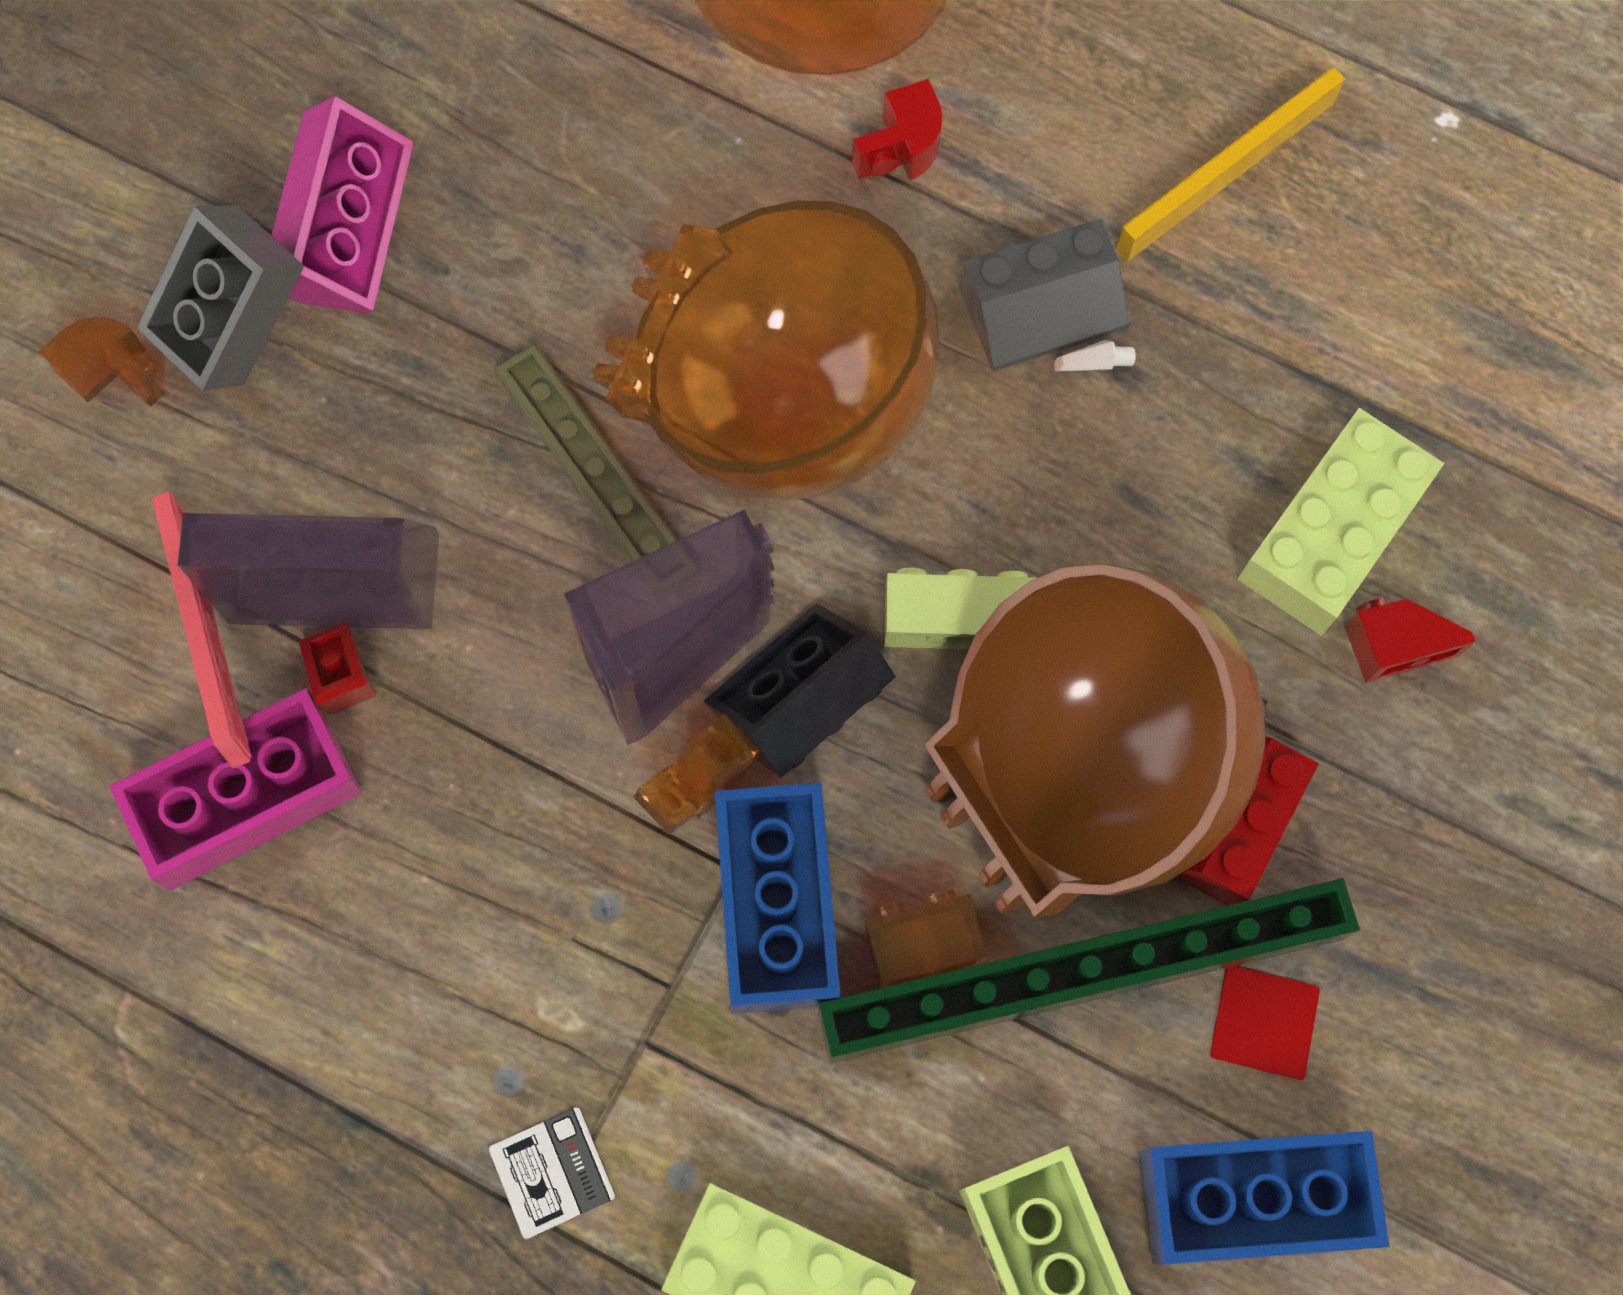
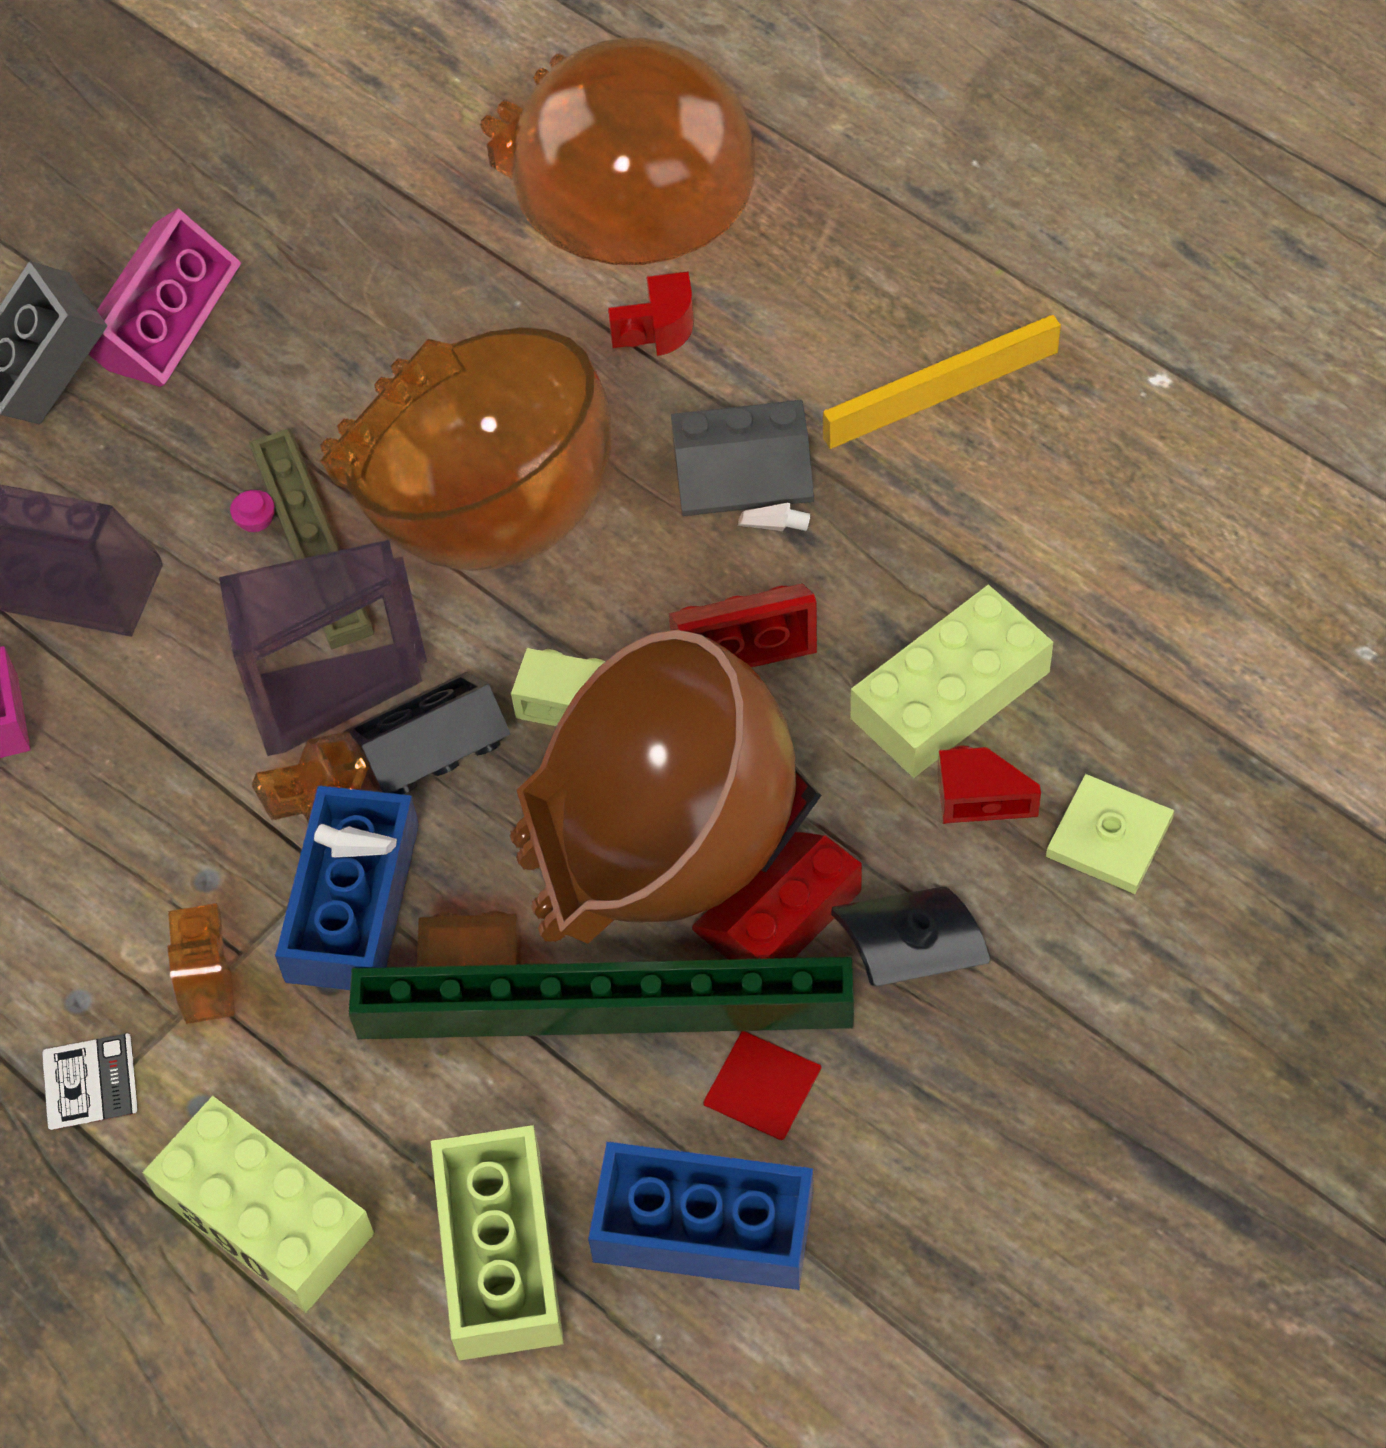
camera: 20 degrees right, 15 degrees down
(335, 669) = (37, 651): red slope -> none
(523, 451) = (252, 510): none -> dark pink plate
(639, 1017) = (199, 965): none -> clear orange brick
(779, 855) = (353, 841): none -> white bar
(1108, 501) = (757, 626): none -> red slope
(1384, 828) = (913, 935): none -> black shield
(1541, 663) = (1110, 833): none -> yellowish green plate

